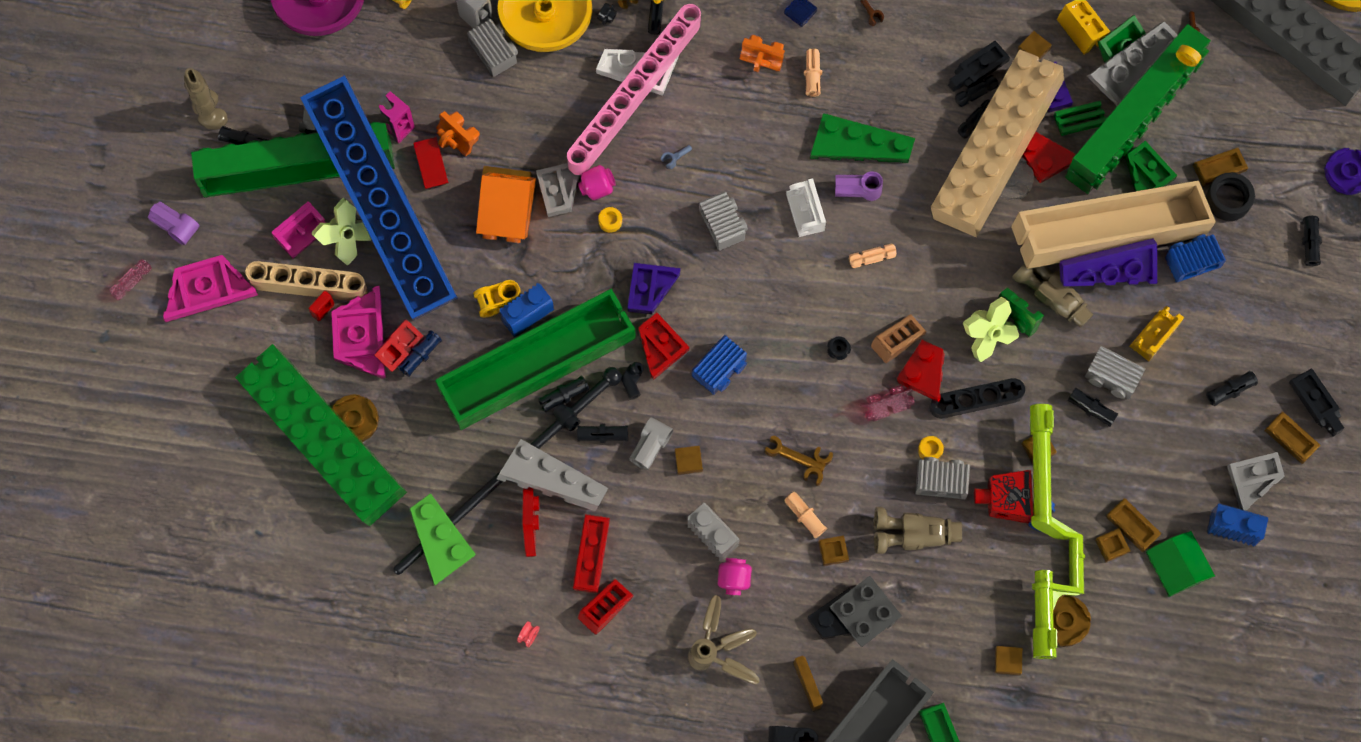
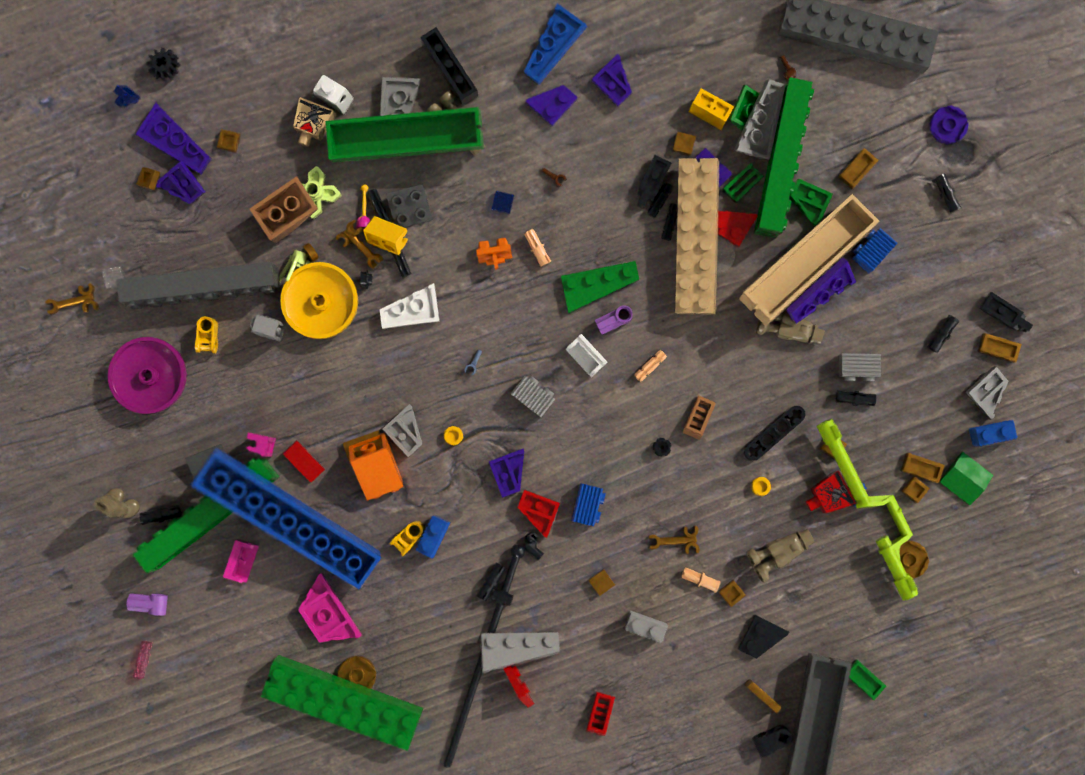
camera: 25 degrees left, 15 degrees up
(205, 287) = (199, 637): dark pink wing -> none
(297, 274) = (258, 597): tan beam -> none
(321, 306) = (288, 610): red tile -> none
(343, 231) = (271, 551): yellowish green plant -> none
(398, 345) = (358, 609): red slope -> none
(419, 353) = (376, 606): dark blue pin -> none
(441, 541) = (464, 730): bright green wing -> none
(453, 133) = (309, 433): orange hips -> none
(492, 47) = (298, 350): light grey brick -> none
(528, 634) = (560, 762): coral bush -> none
(535, 359) = (459, 570): green piece -> none
(584, 433) = (533, 595): black pin -> none
(591, 553) = (571, 683): red tile -> none
(597, 182) = (430, 414): dark pink head -> none
(630, 98) = (421, 284): bright pink beam -> none
(653, 438) = (570, 585): light grey piece -> none
(729, 642) = (696, 697): dark tan plant -> none
(734, 576) = (676, 649): dark pink head -> none
(865, 611) = (776, 627): dark grey hinge -> none
(878, 404) = (720, 462): clear pink hinge -> none
(924, 370) = (729, 433): red wing -> none
(942, 478) = (781, 505): light grey brick -> none
(990, 327) = (758, 380): yellowish green plant -> none
(1008, 660) = (885, 607): pearl gold tile -> none
(1023, 319) = (780, 361): green wing -> none
(1156, 333) = (873, 321): yellow hinge -> none
(1188, 55) = (802, 105): yellow tile -> none
(1235, 180) = (887, 179): black tyre -> none

